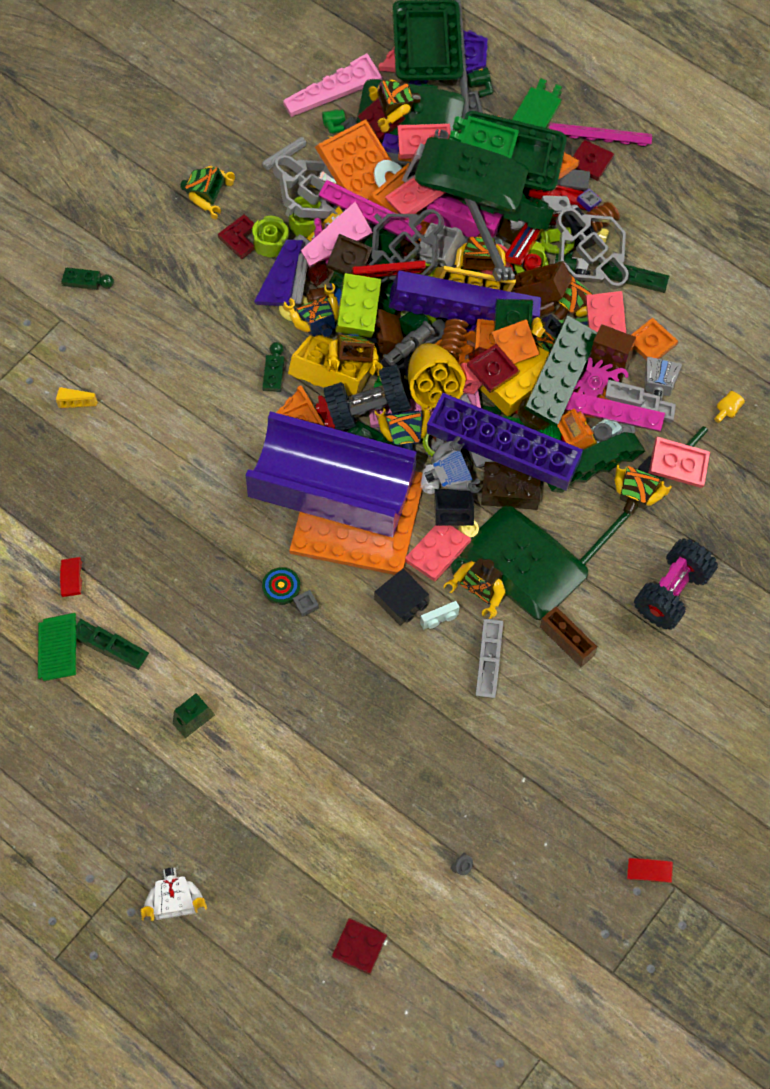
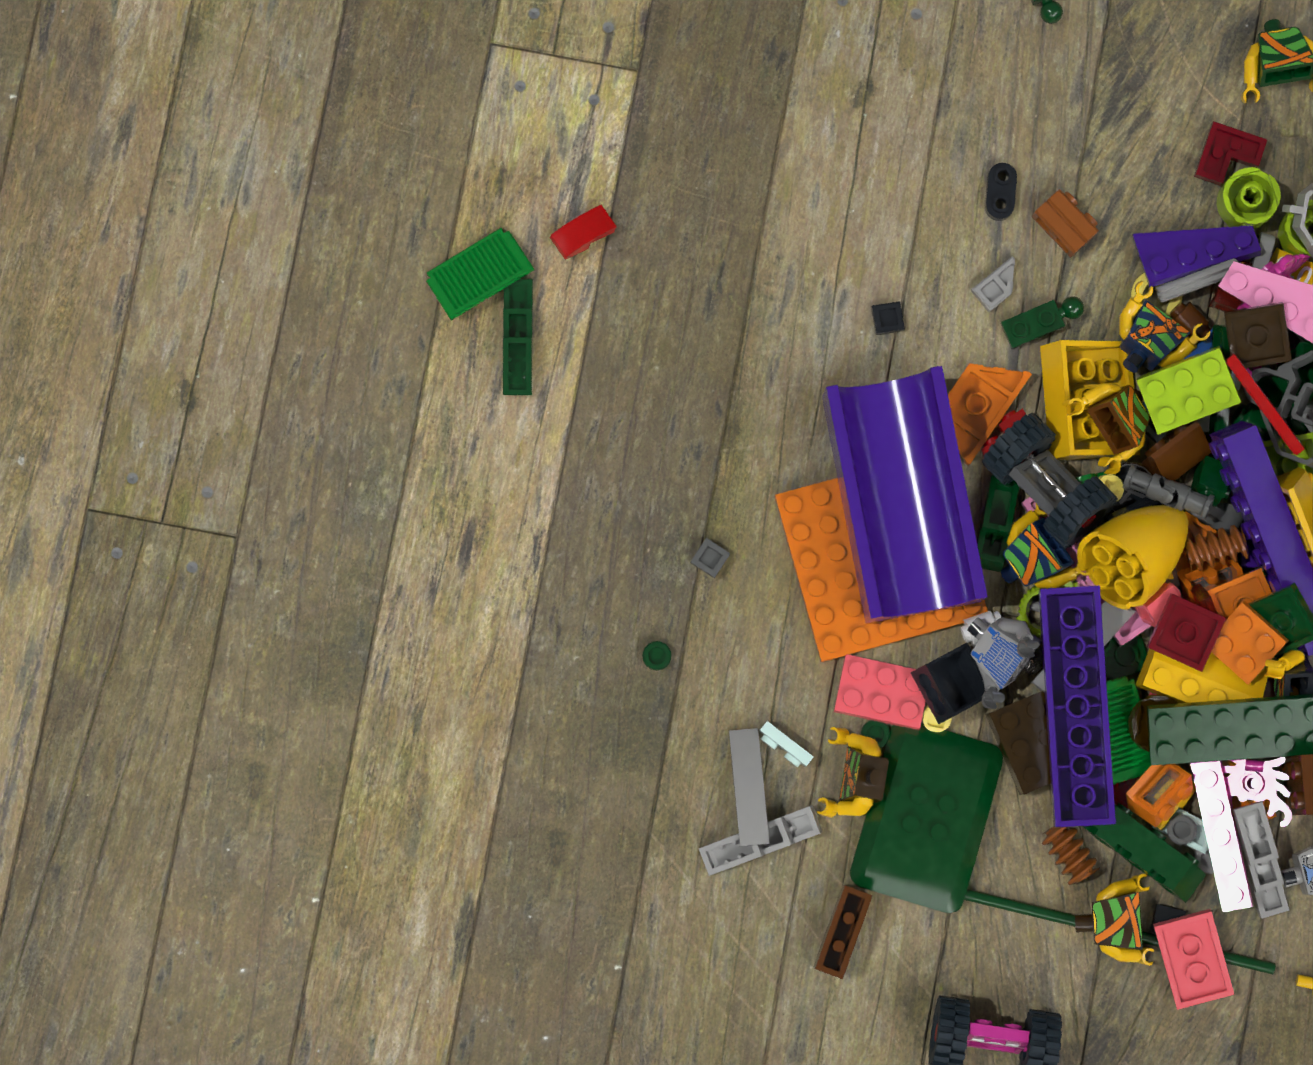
camera: 60 degrees right, 20 degrees up
(74, 398) = (841, 74): yellow slope -> none
(172, 897) = (230, 609): white torso -> none
(188, 352) = (1000, 190): none -> black plate
(192, 714) = (477, 500): dark green torso -> none
(223, 444) = (887, 318): none -> black tile
(227, 329) = (1066, 222): none -> dark orange brick
(240, 381) = (996, 286): none -> light grey tile
(281, 585) = (719, 511): dark green tile -> none
(346, 662) = (656, 655): none -> dark green tile
(359, 946) = (292, 871): dark red plate -> none
(402, 597) = (785, 681): black piece -> none
(454, 646) = (749, 787): none -> light grey slope
(462, 865) = (461, 946): dark grey plate -> none
(585, 495) = (1070, 853): none -> dark orange piece

